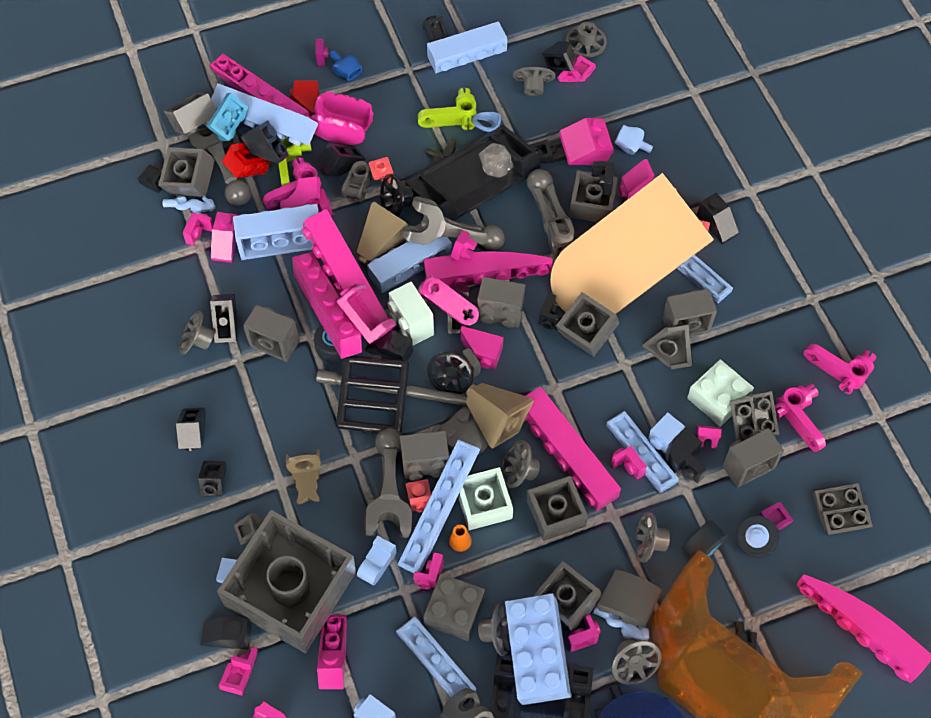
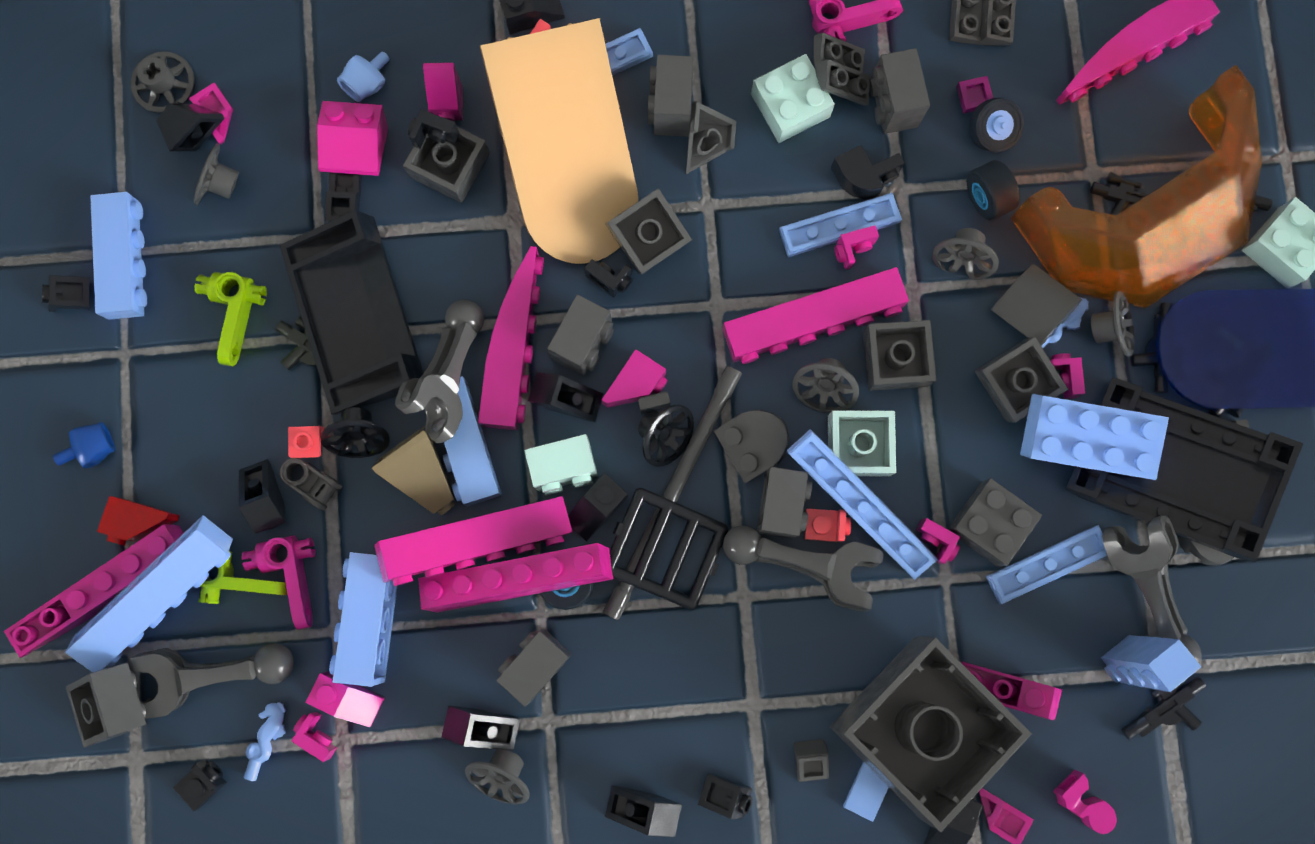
camera: 75 degrees left, 20 degrees up
(186, 171) = (215, 734): dark grey brick -> none
(227, 117) = (146, 651): dark azure bracket -> none
(242, 167) = (230, 654): red window -> none
(265, 143) = (210, 604): black slope -> none
(305, 475) = (756, 668): dark tan hair -> none
(306, 192) = (311, 561): dark pink tile -> none
(321, 52) = (50, 476): magenta plate -> none
(323, 203) = (331, 543): dark pink tile -> none
(342, 118) = (195, 477): dark pink animal -> none
(362, 316) = (566, 532): dark pink panel -> none
(377, 560) = (904, 605): light blue leg -> none
(447, 299) = (561, 409): piece -> none
(460, 538) = (895, 493): orange cone -> none
(461, 246) = (481, 361): dark pink tile -> none
(491, 117) = (261, 255): medium blue piece -> none
(495, 630) = (1035, 481): dark grey wheel -> none
(496, 160) = (346, 273): clear brick -> none
(497, 412) = (749, 390): dark tan slope -> none
(559, 229) = (485, 223): dark grey piece -> none
(664, 432) = (828, 186): light blue brick -> none
(708, 432) = (841, 134): dark pink tile -> none

